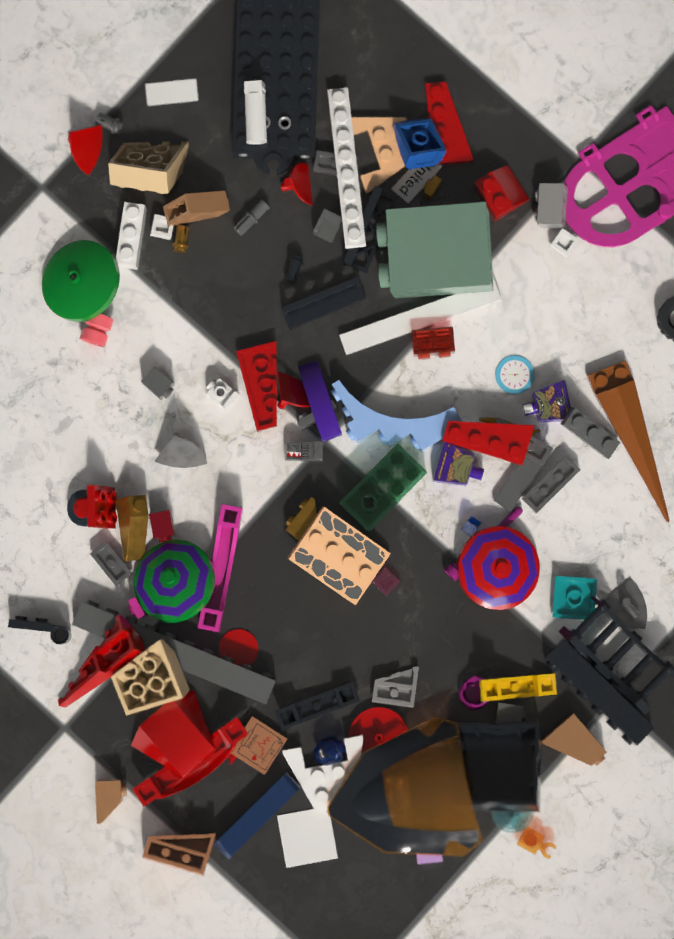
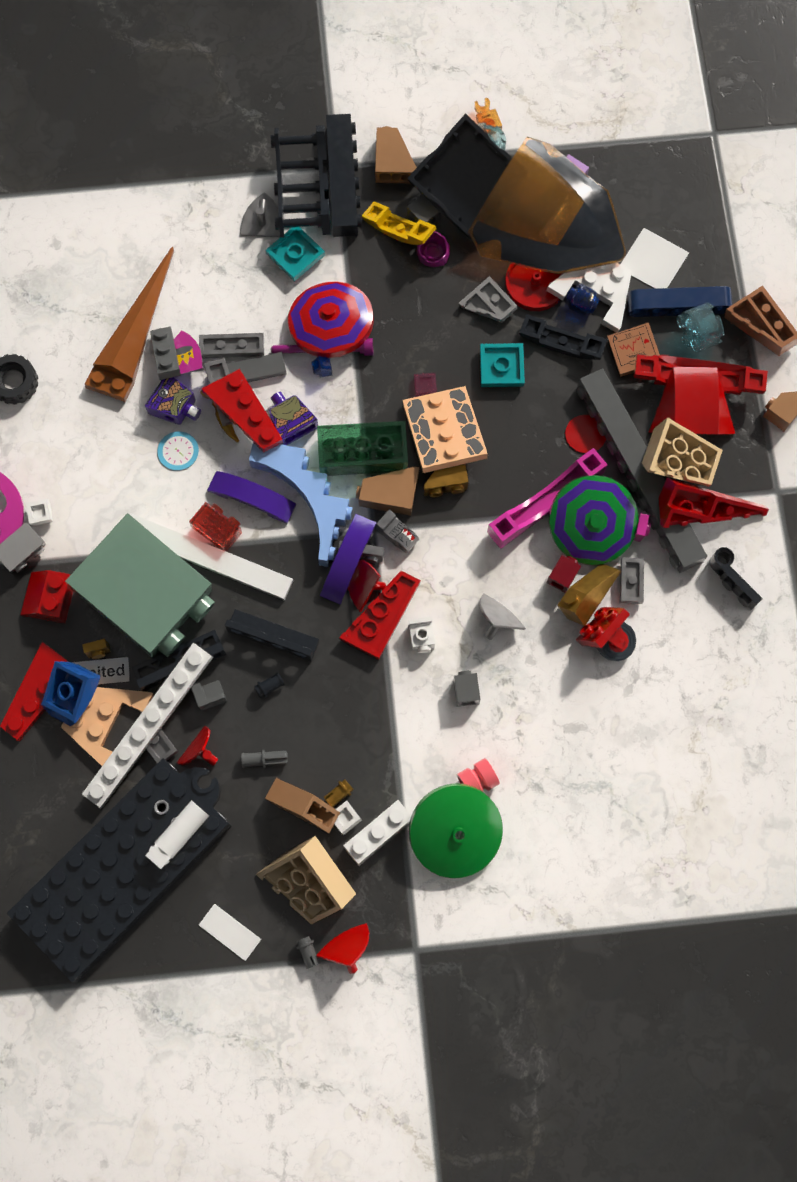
camera: 140 degrees left, 10 degrees down
(222, 801) = (700, 327): none -> clear light blue brick
(335, 476) = (389, 491): none -> medium nougat slope
(343, 645) = (502, 365): none -> teal plate
(430, 387) = (253, 495): none -> dark purple slope
(576, 449) = (187, 352): none -> dark pink sticker

